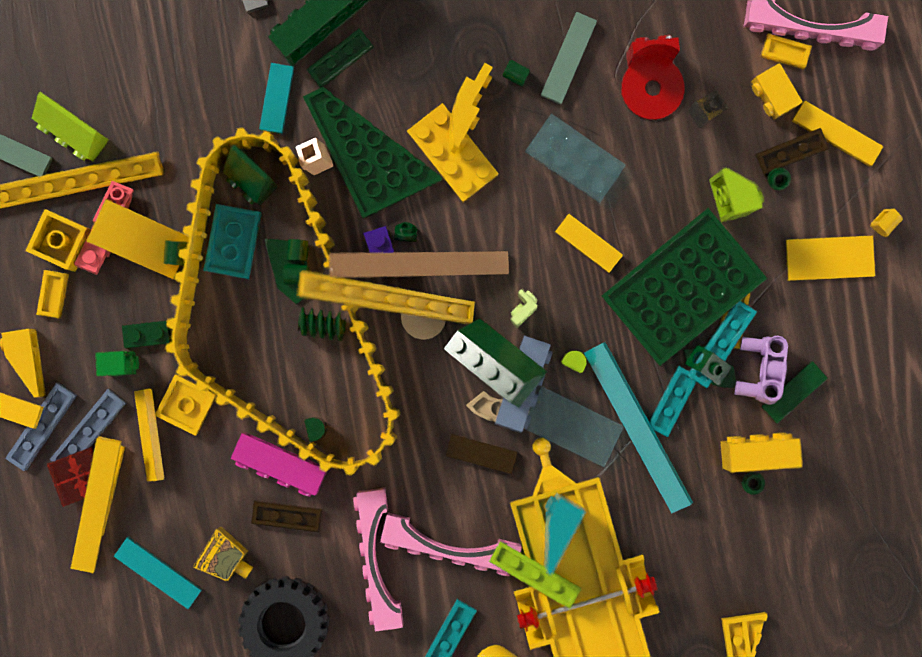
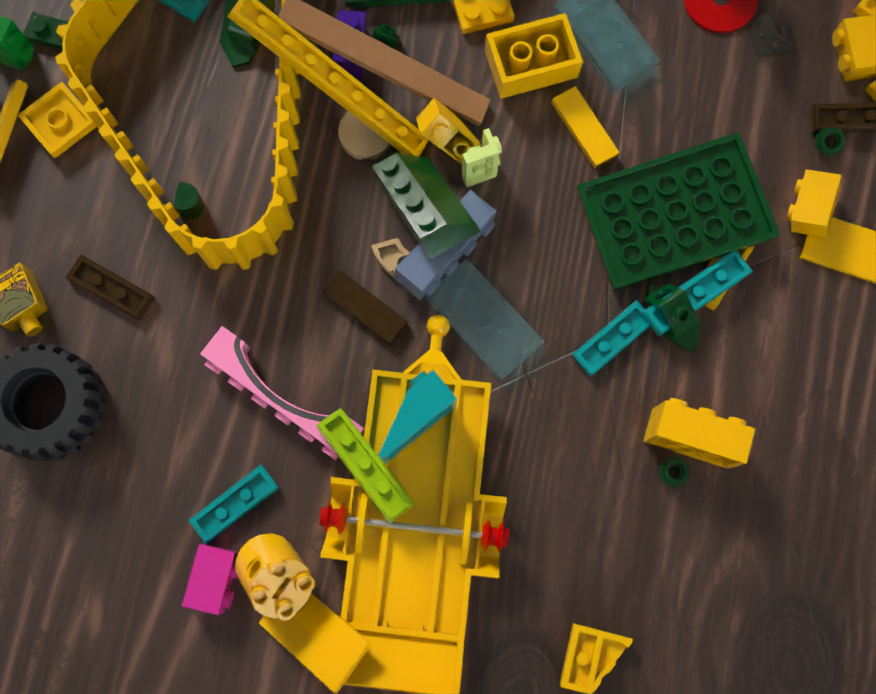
camera: 15 degrees right, 10 degrees down
(278, 463) = (129, 223): dark pink brick -> none
(322, 324) = (248, 94): dark green piece -> none
(385, 611) = (170, 435): bright pink arch -> none
(485, 294) = (445, 130): none -> yellow slope
(527, 205) = (533, 55): none -> yellow brick
(574, 360) = (516, 244): lime brick -> none
(638, 427) = (561, 352): teal tile -> none
(735, 195) = (777, 125): lime slope -> none
(772, 368) = (746, 345): lavender piece -> none
(784, 237) = (815, 203): none -> yellow brick
(795, 391) = (762, 385): dark green tile -> none

